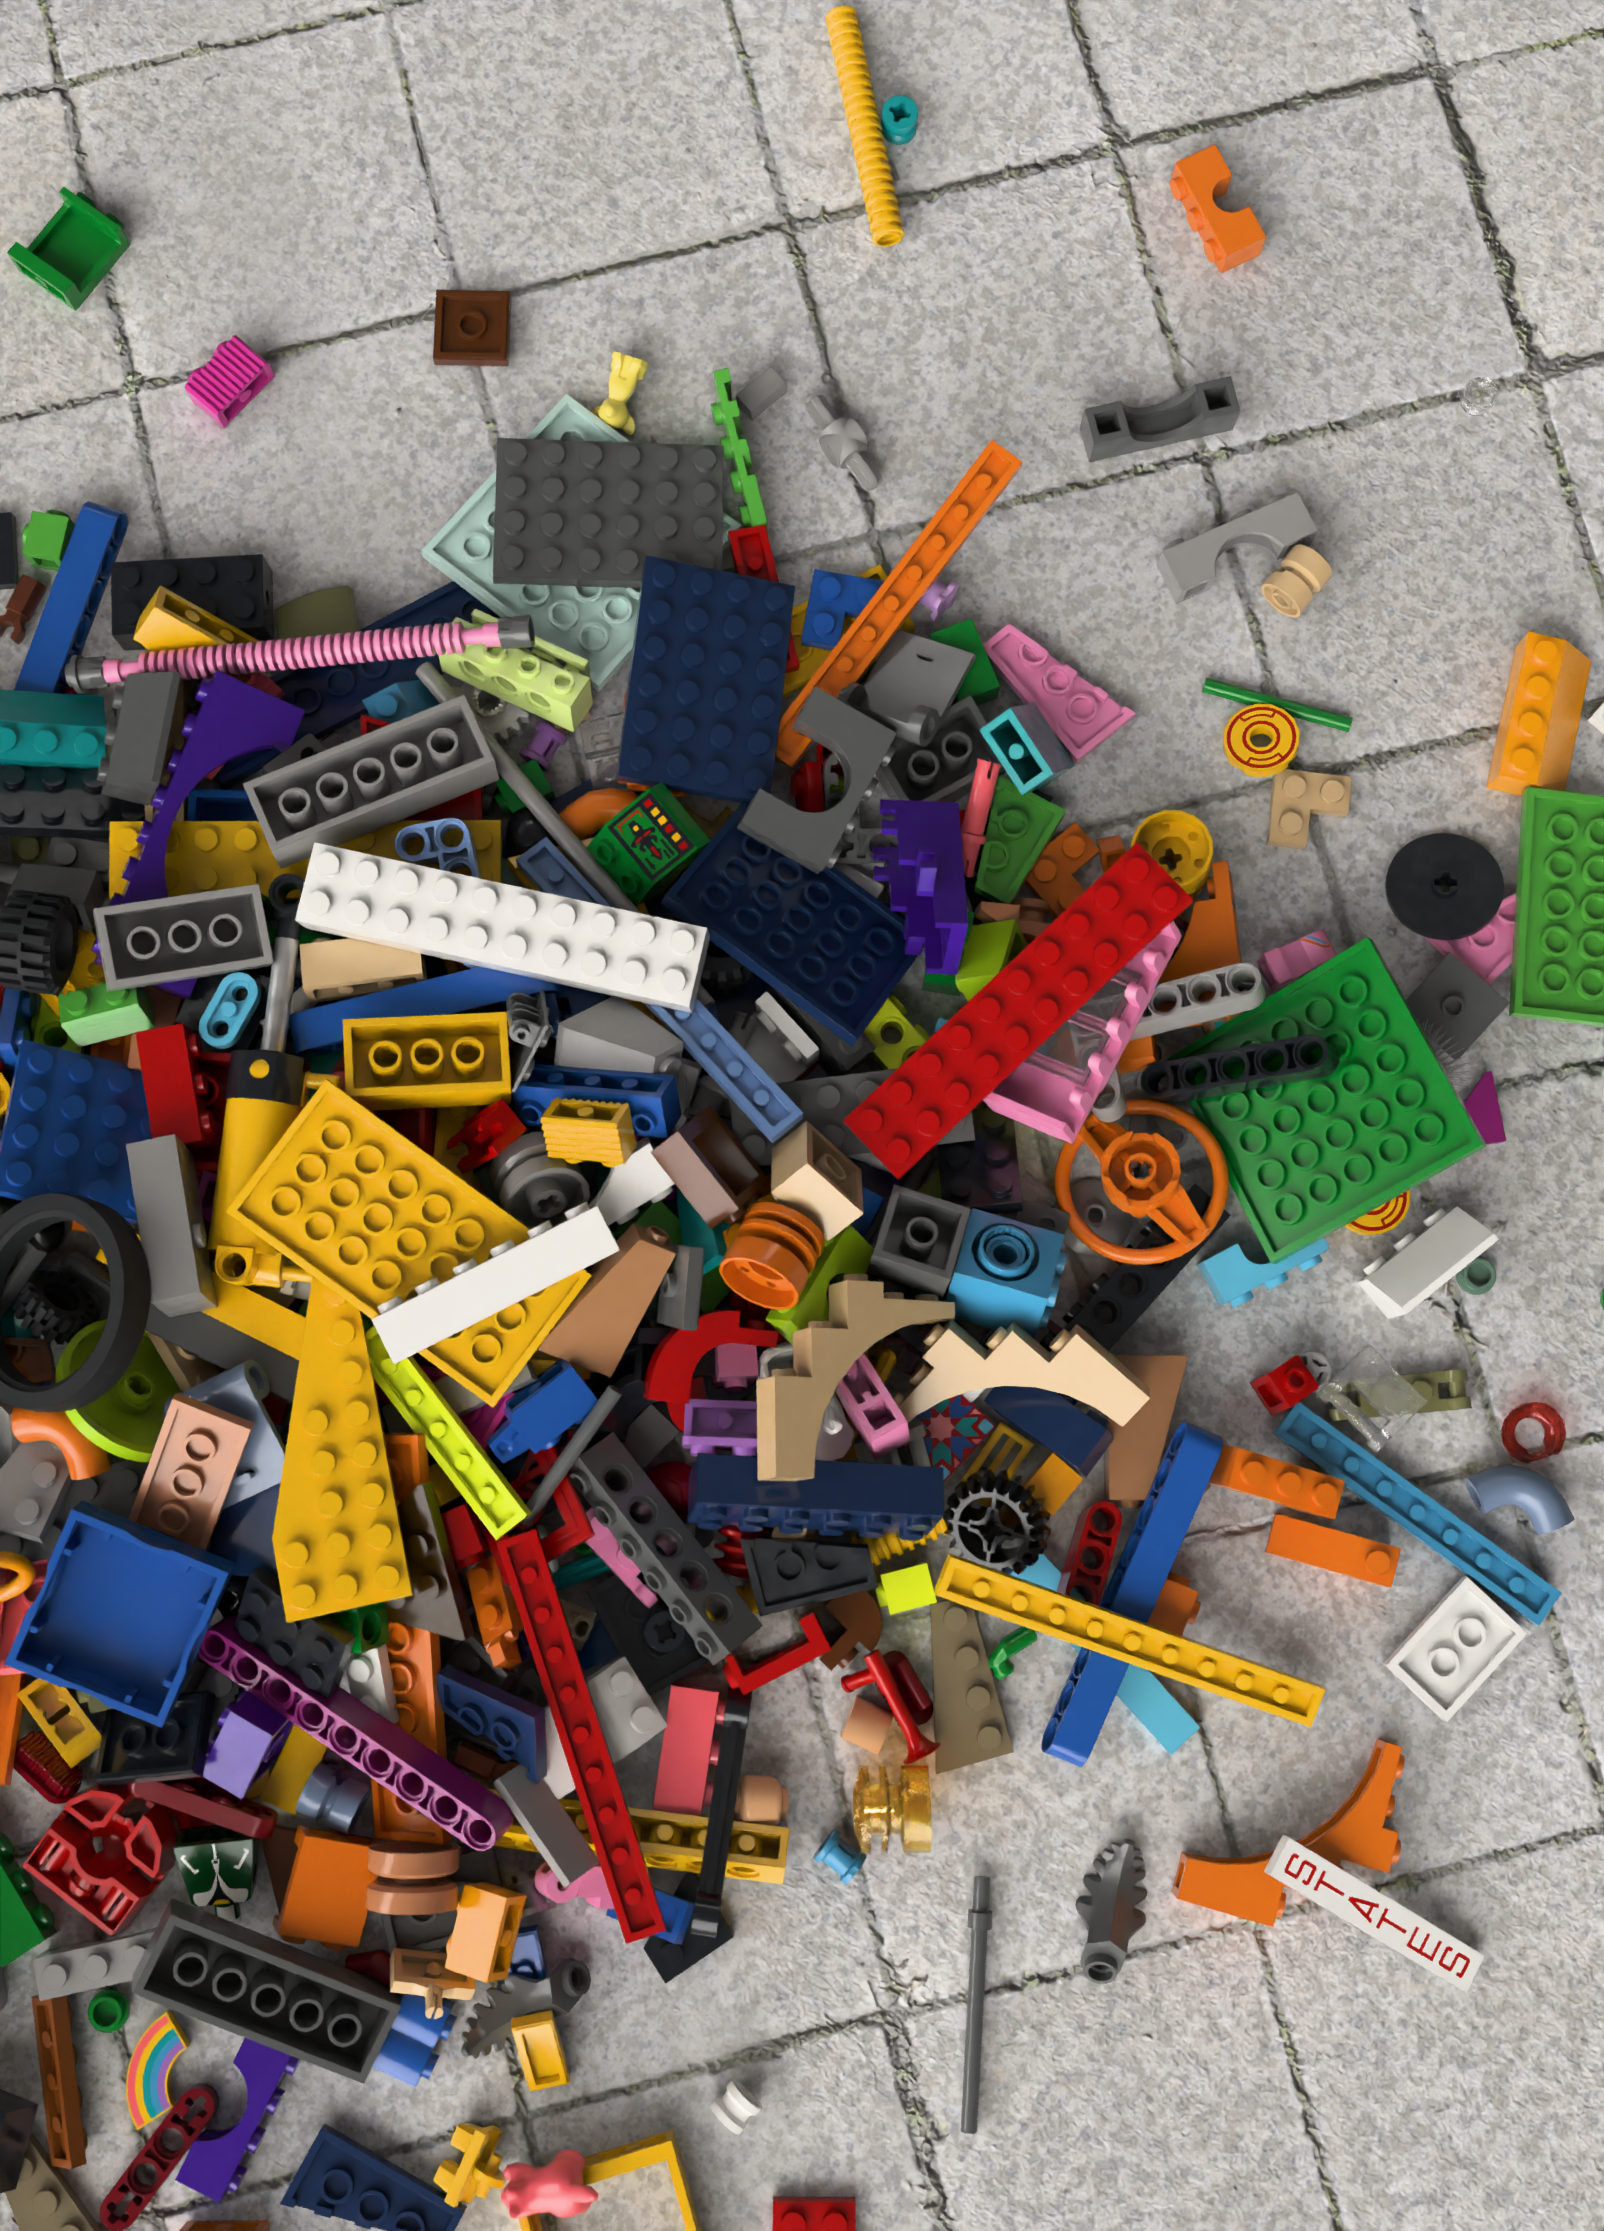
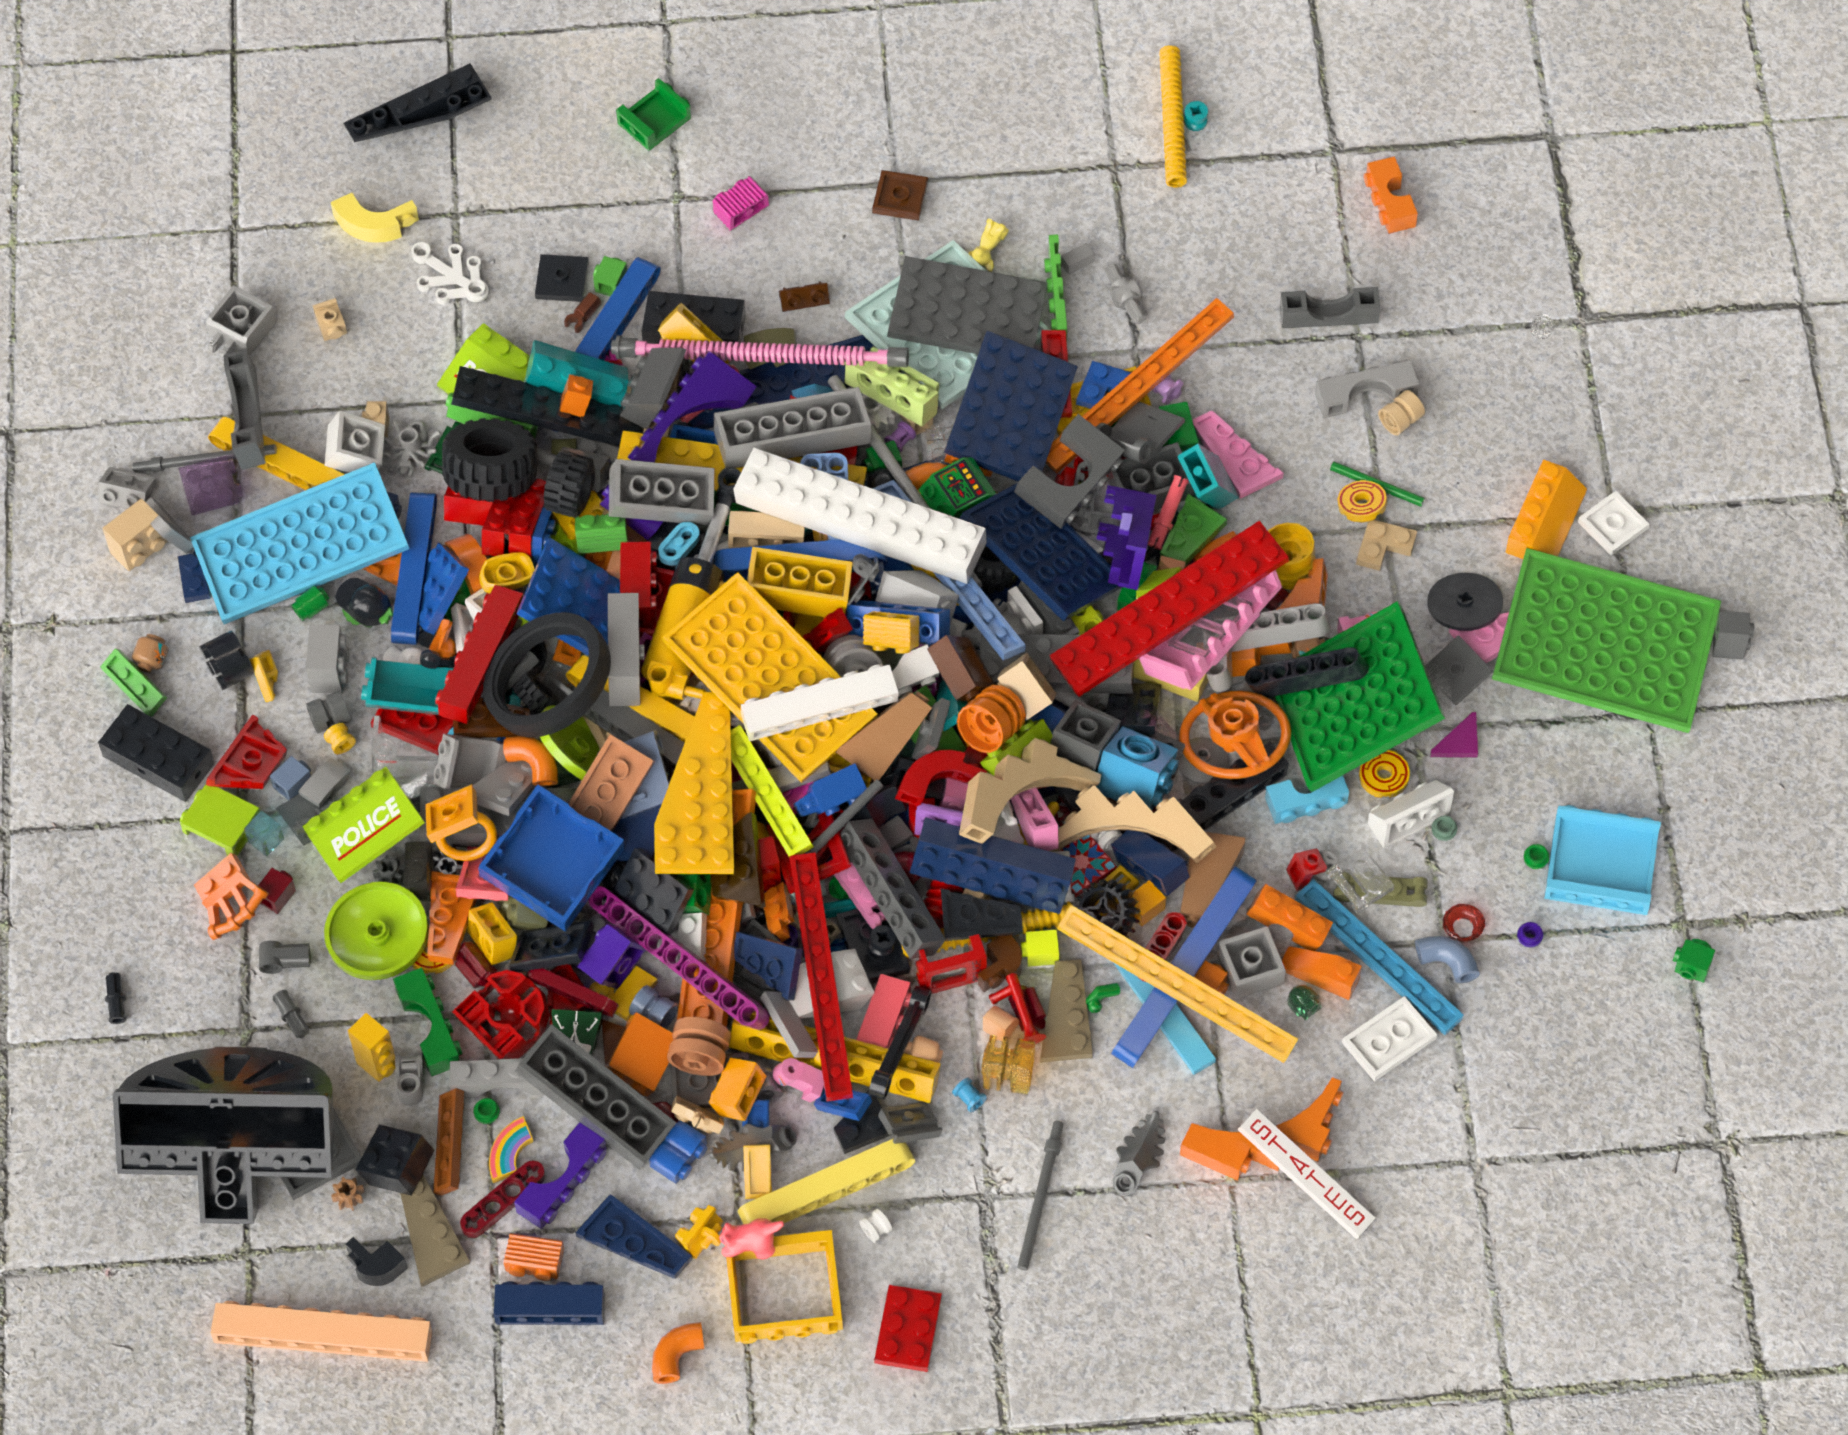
camera: 10 degrees right, 20 degrees down
(24, 775) = (576, 395): none -> orange brick
(366, 523) = (804, 297): none -> reddish brown hinge
(649, 2052) = (830, 1184): none -> light yellow beam
(759, 1928) = (910, 1122): none -> dark grey plate
(1230, 1564) = (1251, 962): none -> light grey brick
(1314, 1604) = (1303, 1001): none -> clear green piece

